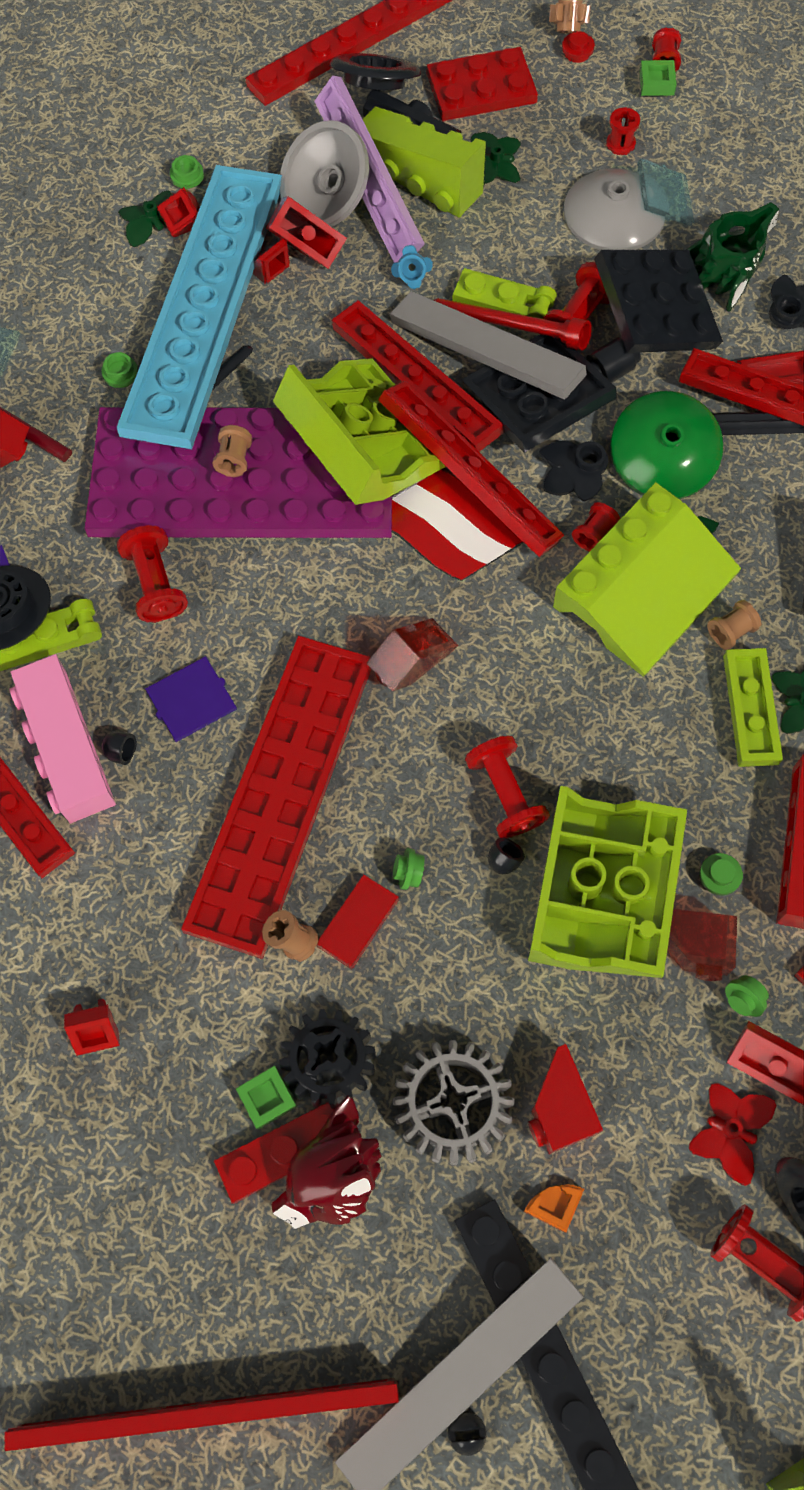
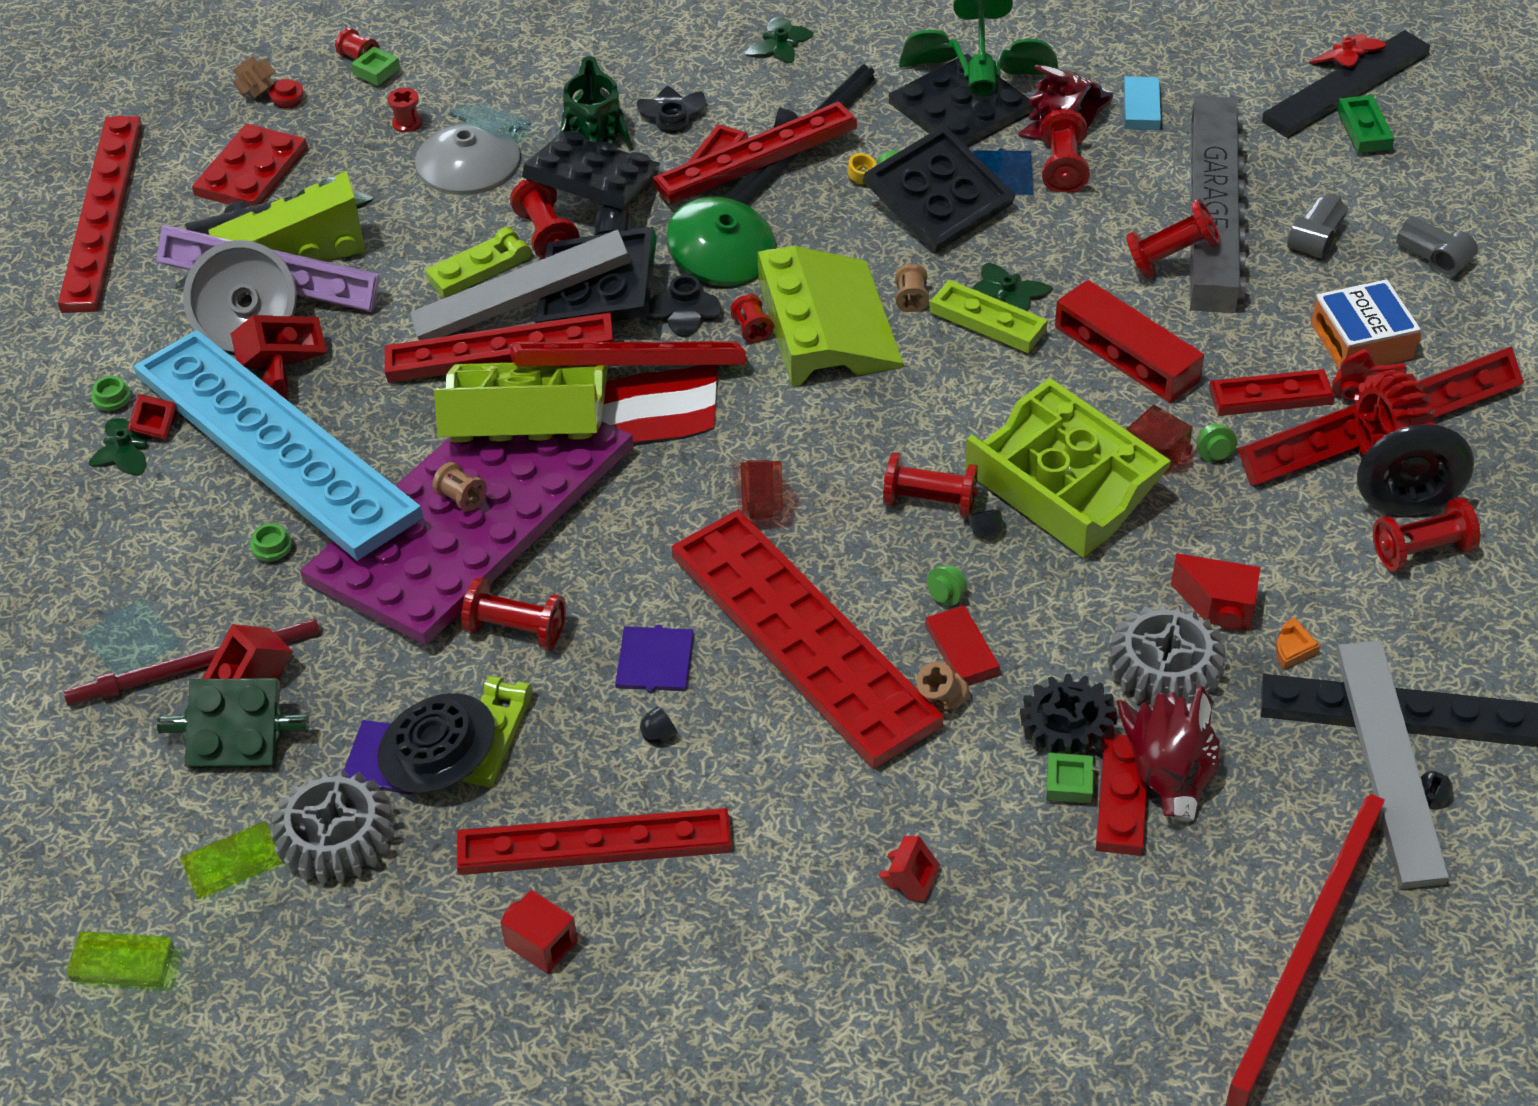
camera: 55 degrees left, 20 degrees down
(61, 738) = (614, 758): bright pink brick -> none
(375, 70) = (170, 211): black wheel -> none
(402, 270) = (397, 294): dark azure plate -> none
(573, 333) = (573, 226): red piece -> none
(721, 874) = (1110, 405): bright green plate -> none
(730, 1128) = (1312, 515): red piece -> none

